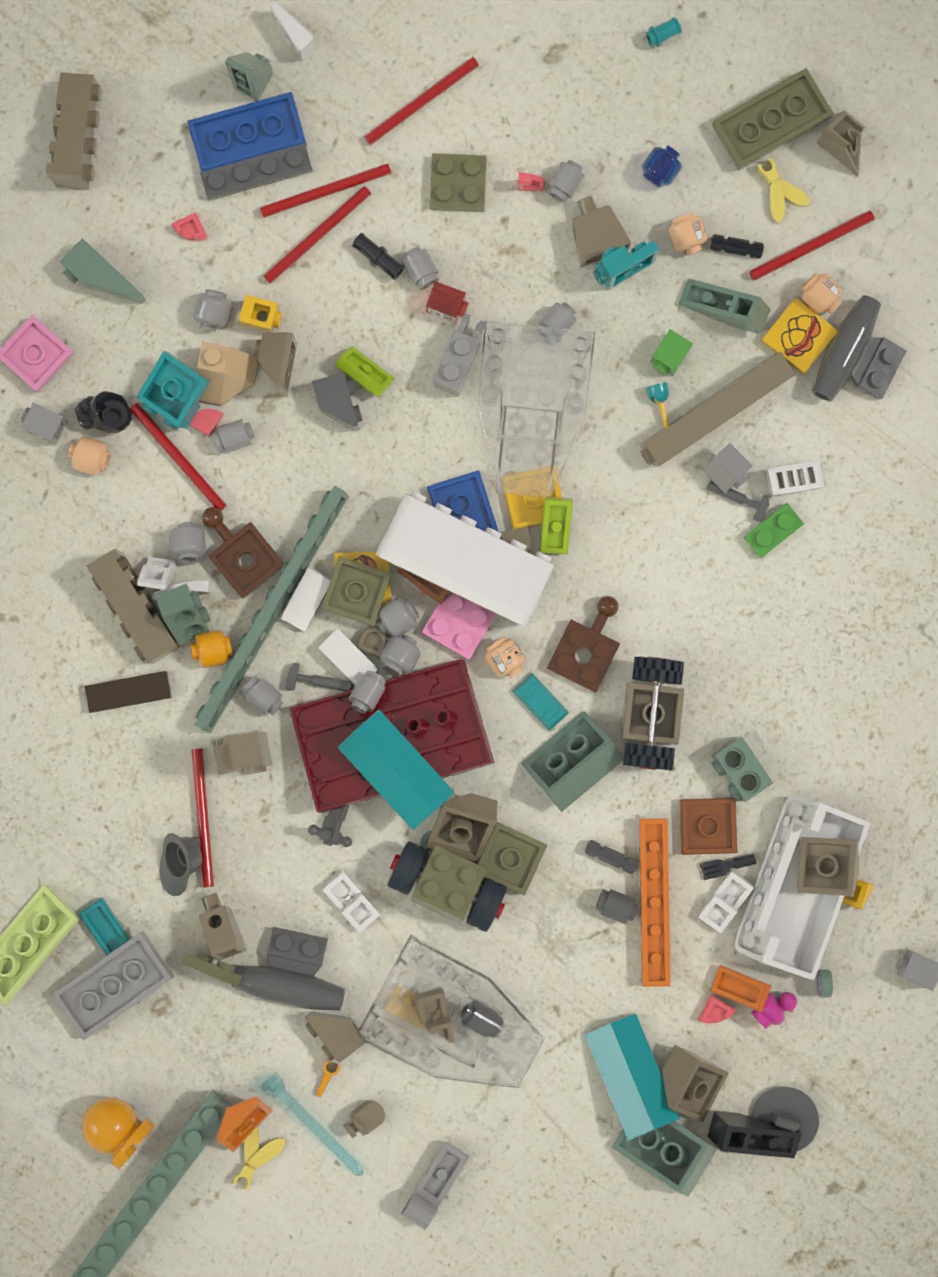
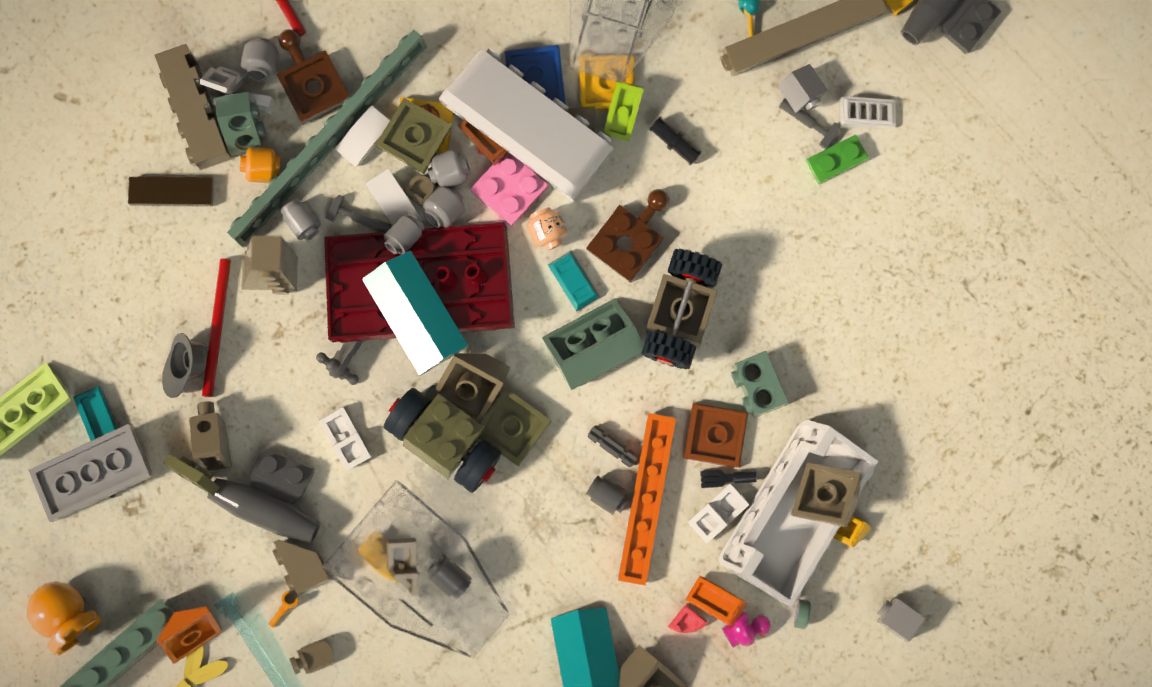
camera: 15 degrees right, 5 degrees down
(612, 544) = (675, 140): none -> black pin

